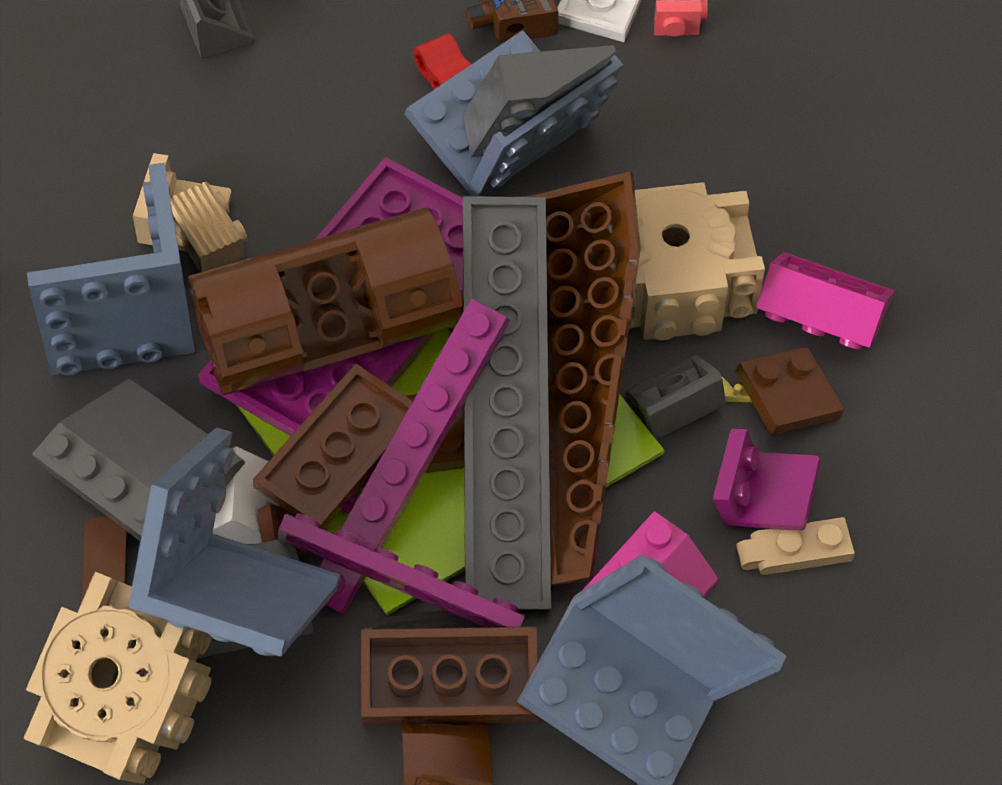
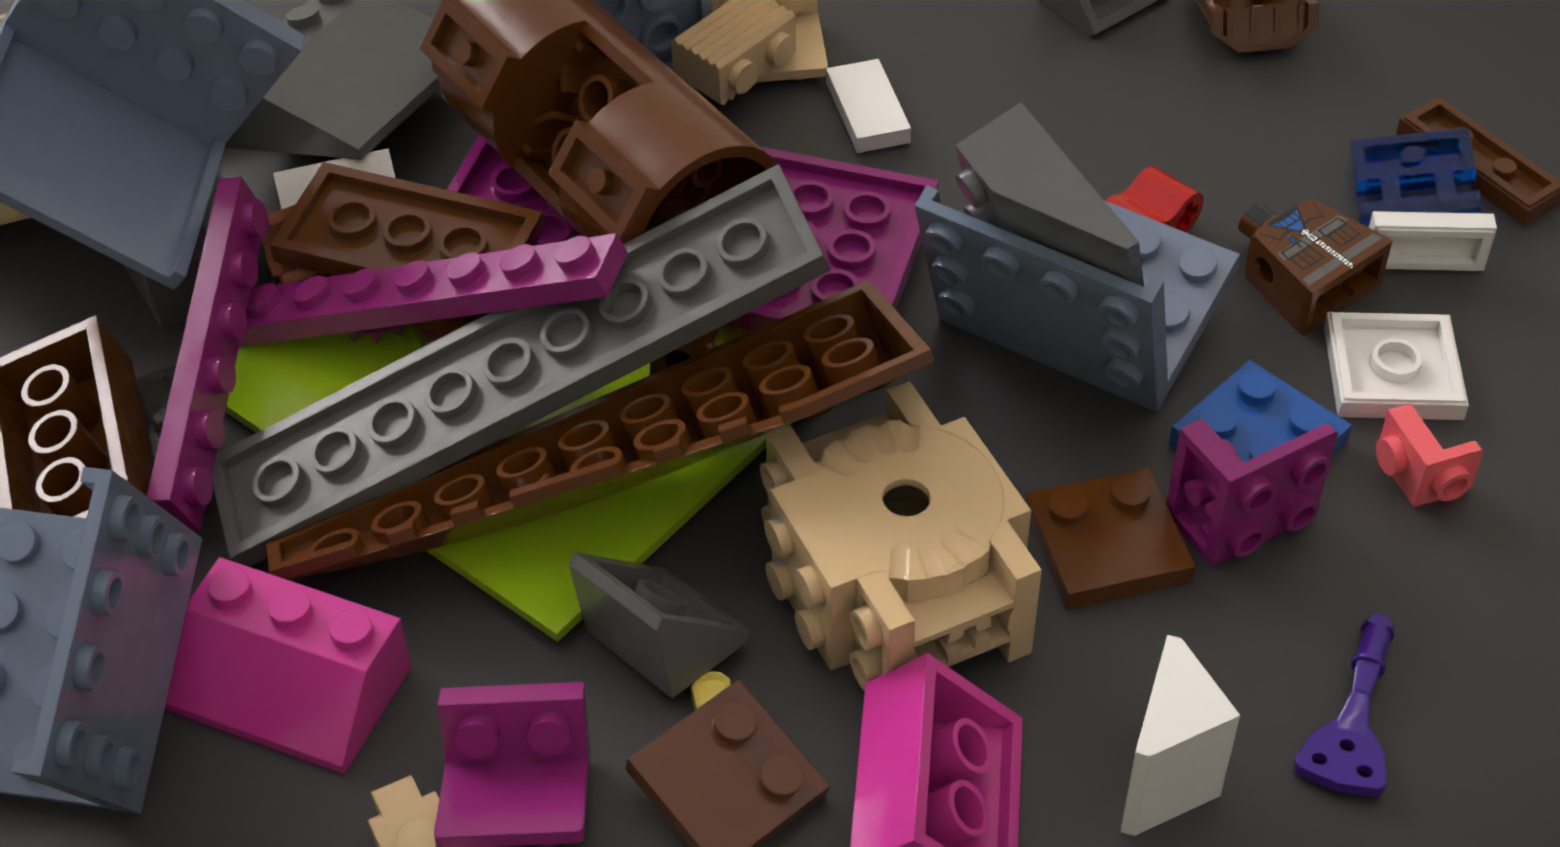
camera: 75 degrees right, 10 degrees down
(272, 179) = (868, 106): none -> white tile
(642, 82) = (1260, 413): none -> blue plate
(678, 162) = (1109, 538): none -> reddish brown plate
(690, 103) = (1237, 505): none -> magenta bracket
(834, 115) = (1352, 728): none -> dark purple piece
(839, 182) = (1181, 742): none -> white slope

